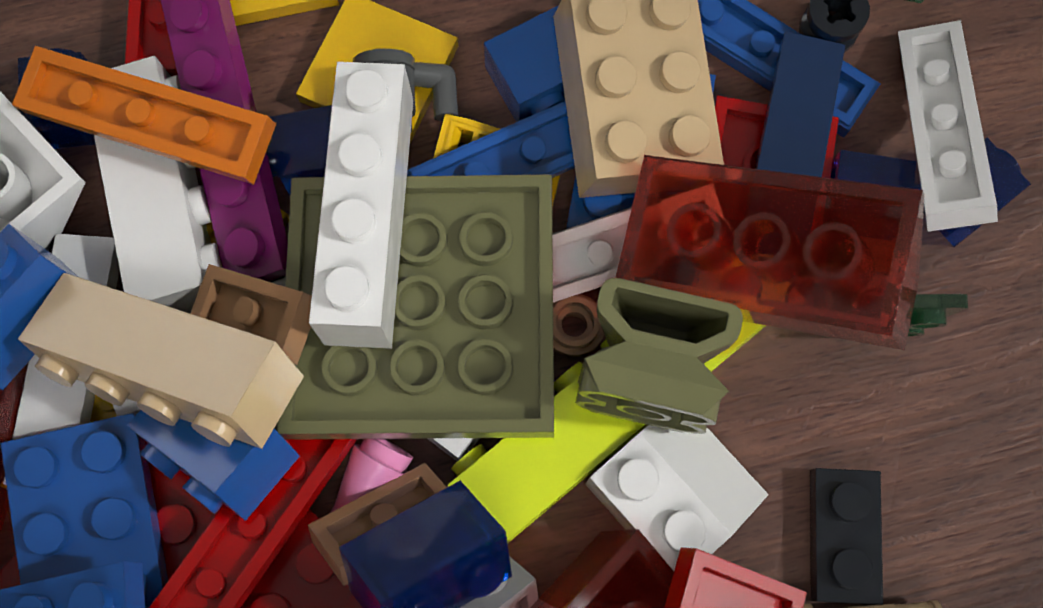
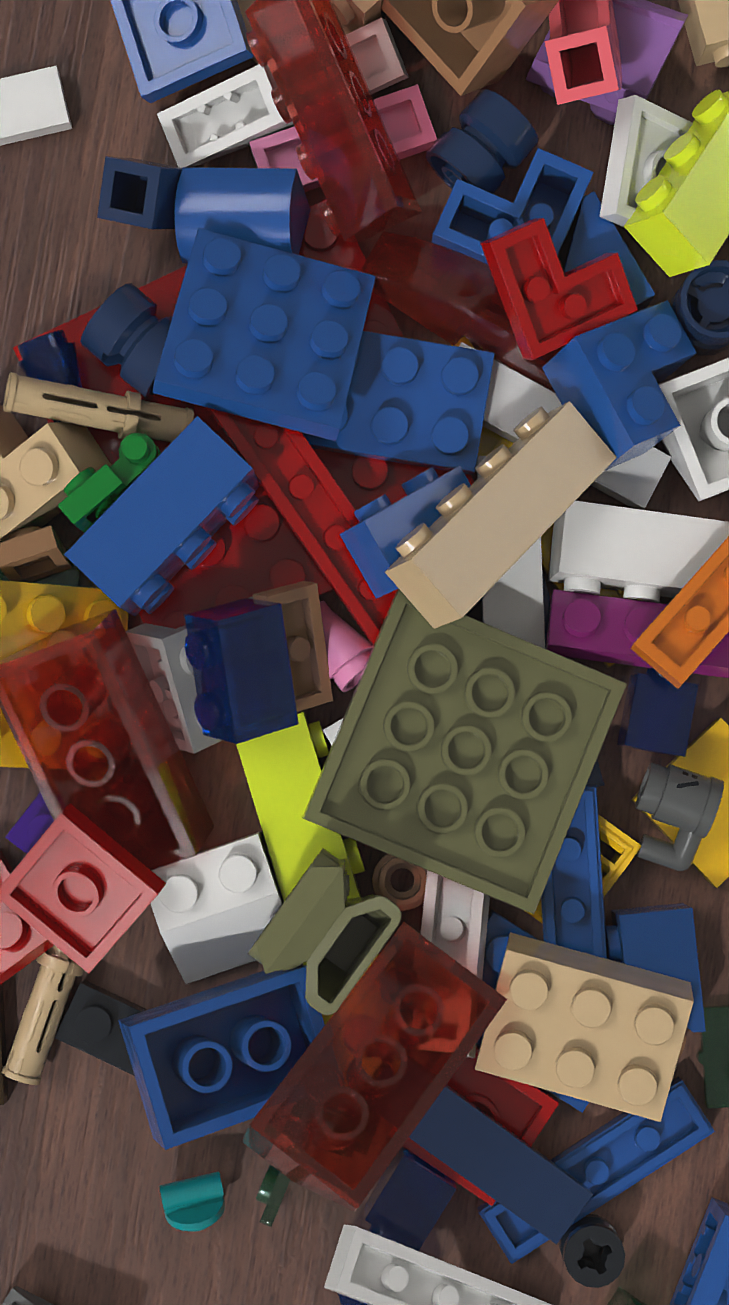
camera: 115 degrees right, 10 degrees up
(255, 308) = (513, 607): medium nougat plate -> none
(362, 206) = (567, 737): white brick -> none
(823, 421) = (218, 1052): none -> blue brick
(972, 394) = (193, 1202): none -> teal plate

